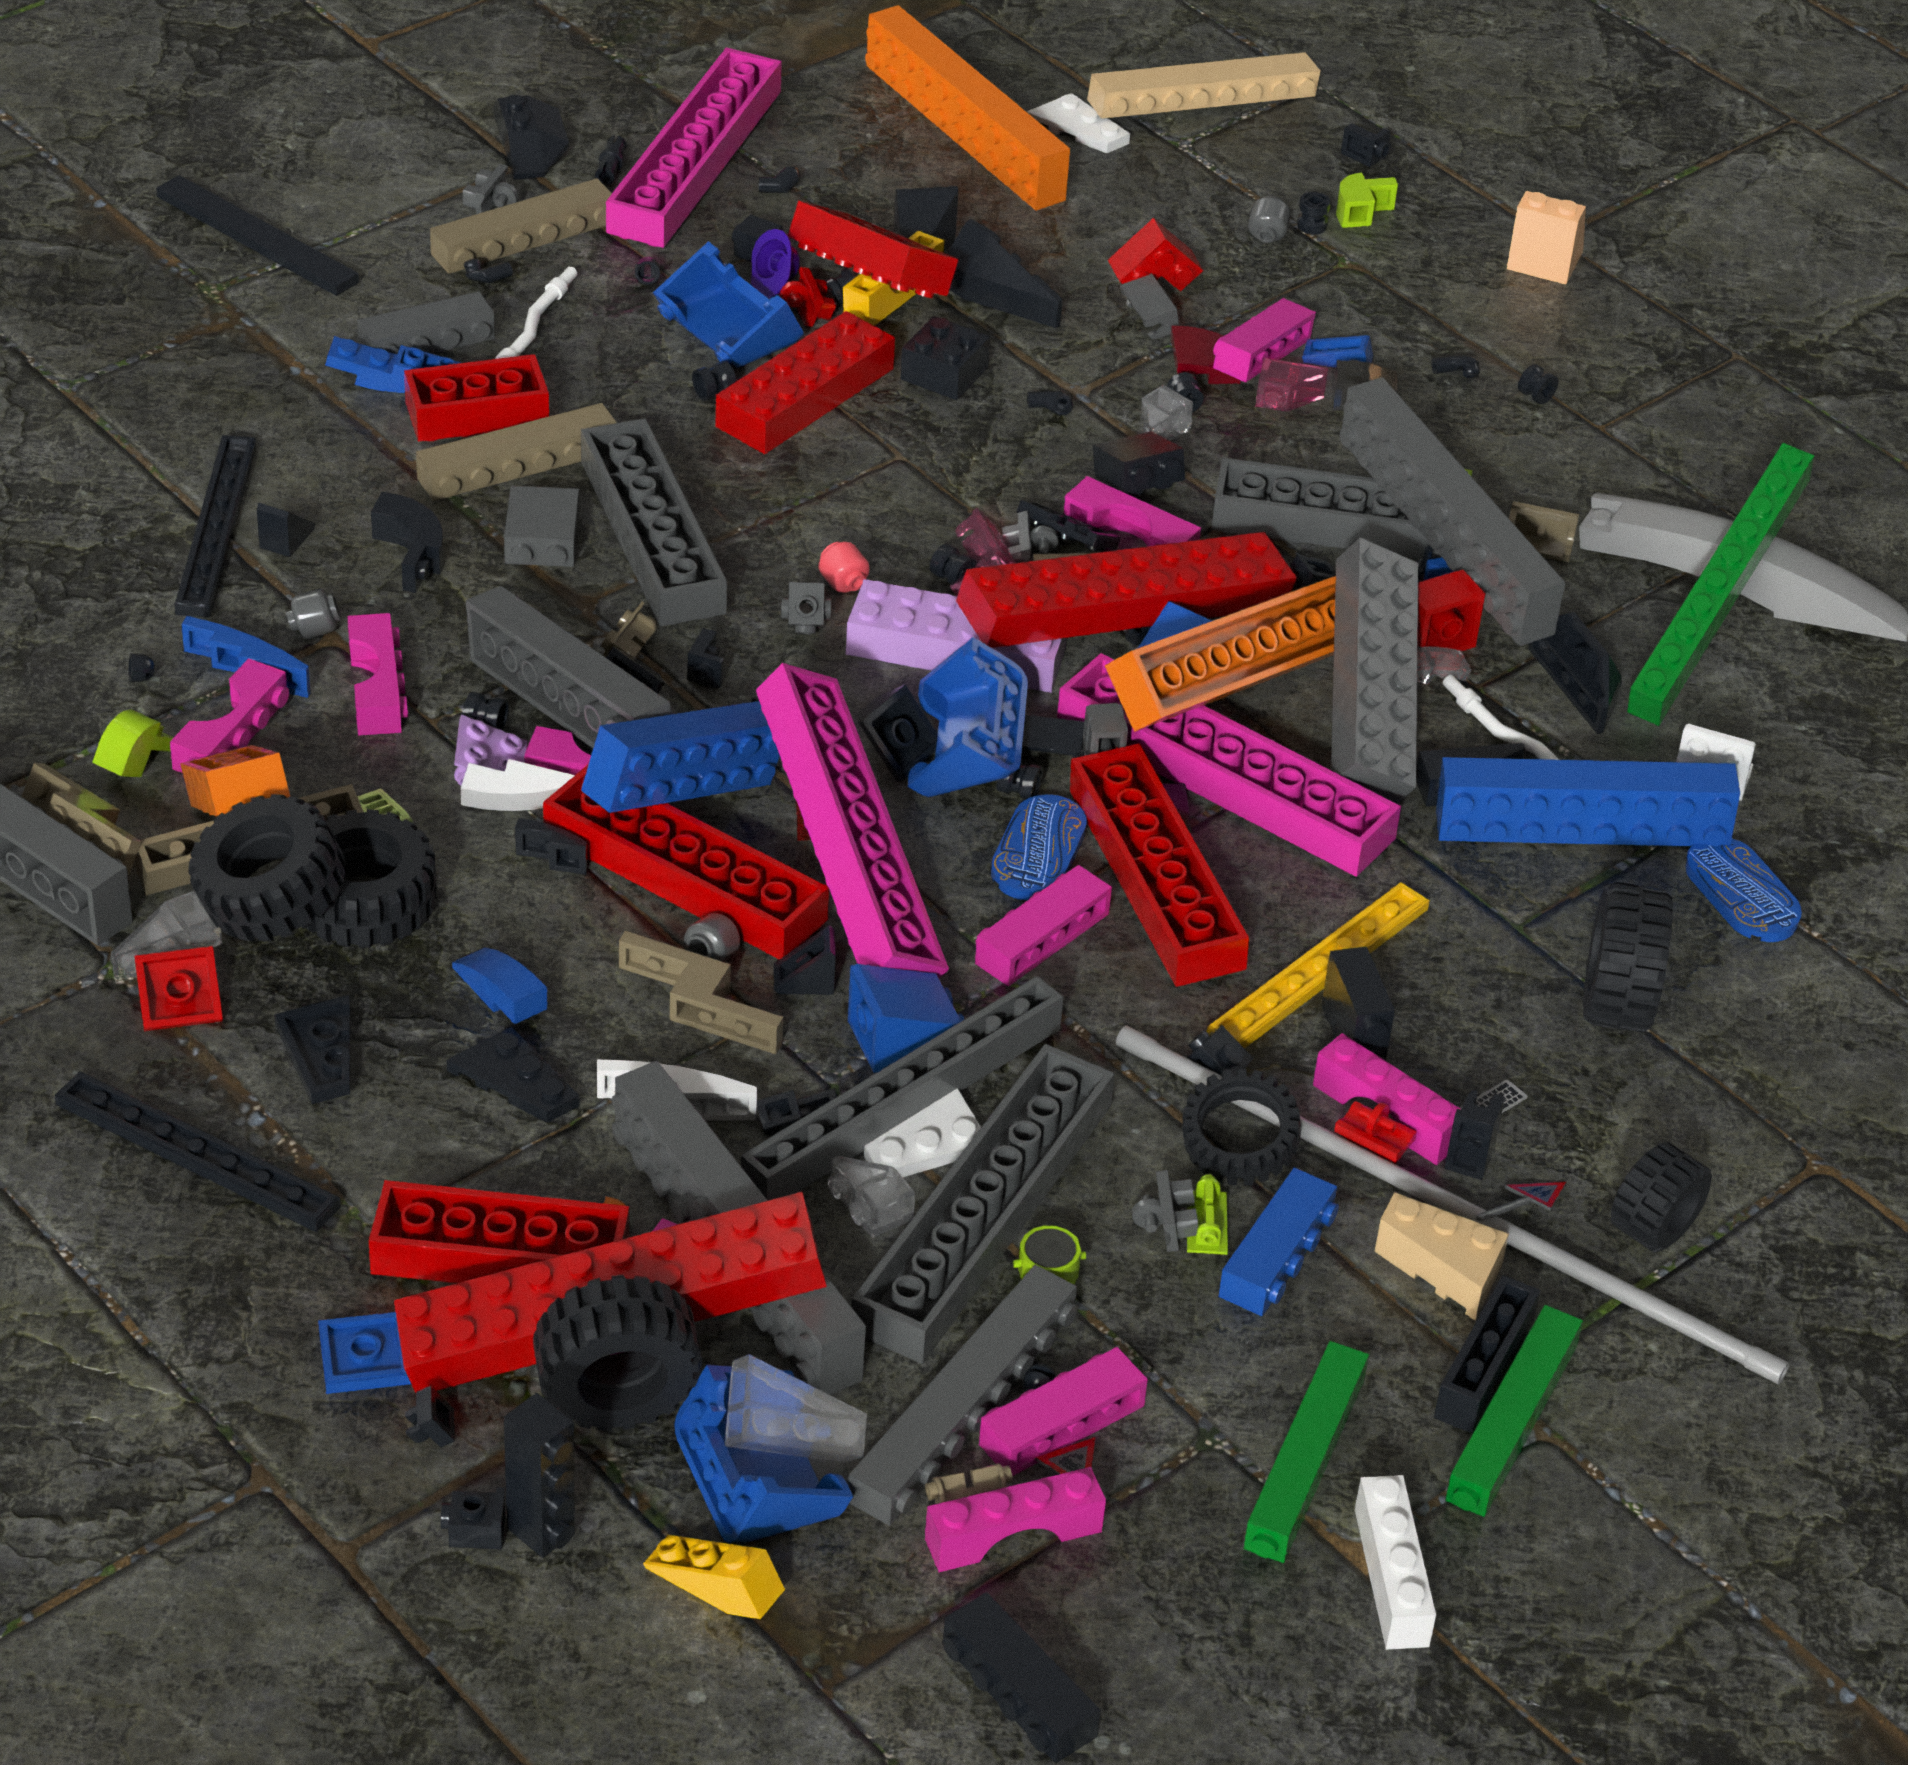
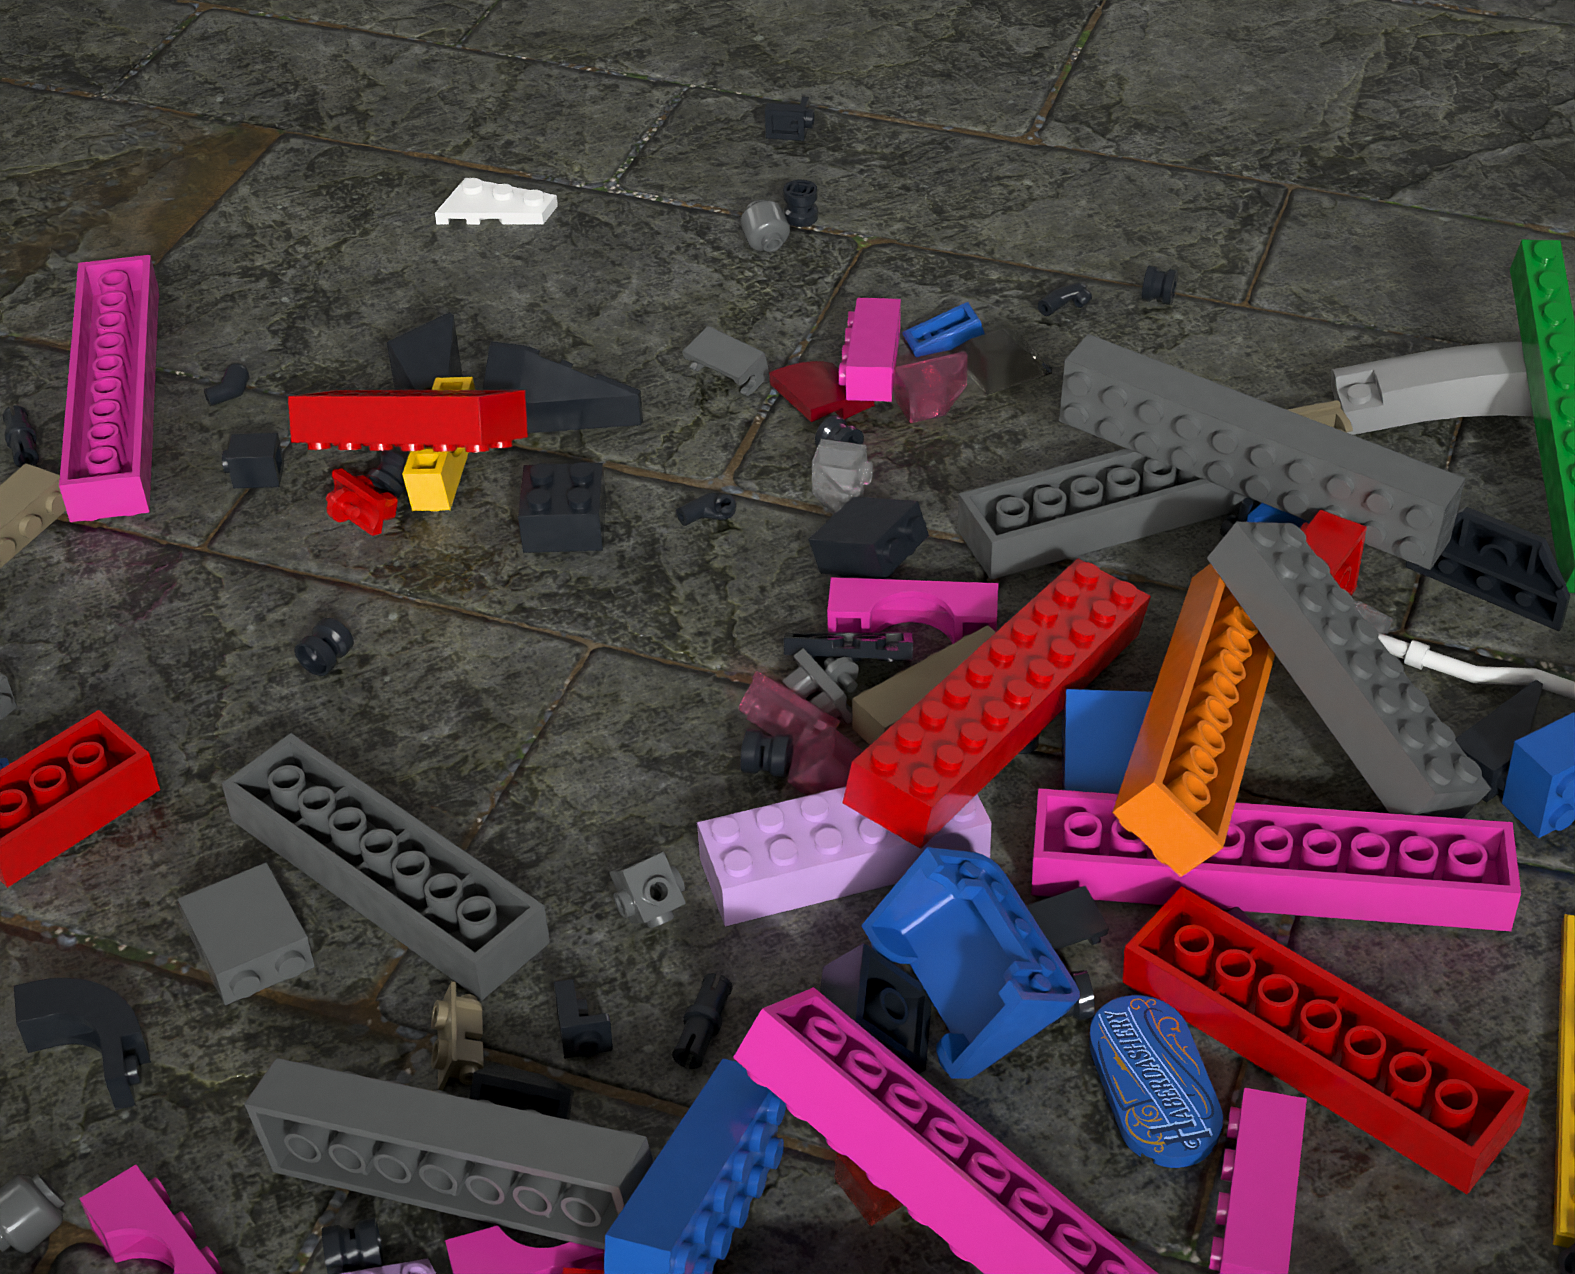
camera: 25 degrees left, 0 degrees up
(507, 453) = (137, 852): dark tan brick -> none
(553, 291) = (55, 617): white bar -> none
(640, 268) = (158, 544): black hinge -> none
(726, 310) = (281, 556): blue windscreen -> none
(773, 262) = (293, 481): dark purple piece -> none
(804, 382) = (429, 606): red brick -> none
(843, 566) = (649, 814): coral head -> none
(968, 107) = (381, 229): orange brick -> none
(1103, 728) = (1129, 895): dark grey brick -> none
(1157, 253) = (693, 305): red brick -> none
(1203, 85) = (590, 122): tan brick -> none
(1310, 571) = (1147, 579): black bracket -> none
(1361, 197) = (835, 171): lime brick -> none
(1547, 237) = (1044, 139): light nougat slope -> none

